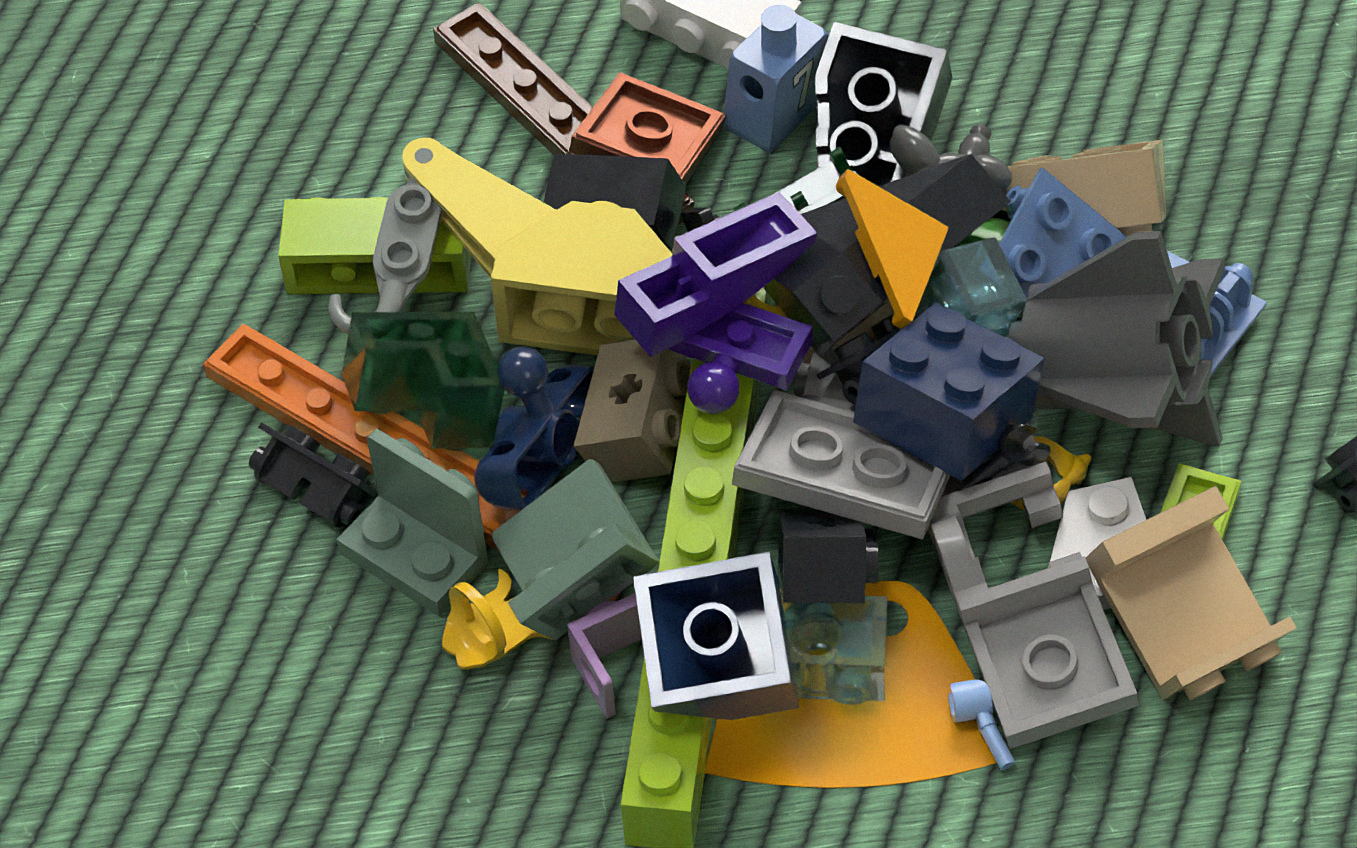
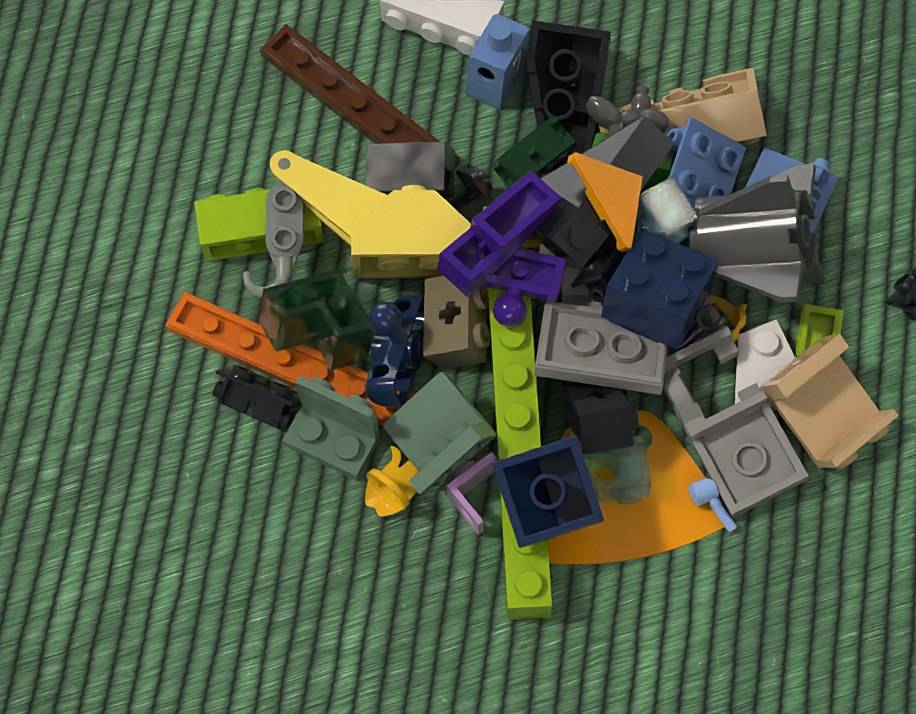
camera: 10 degrees left, 15 degrees up
(649, 123) = (419, 109): tile -> none

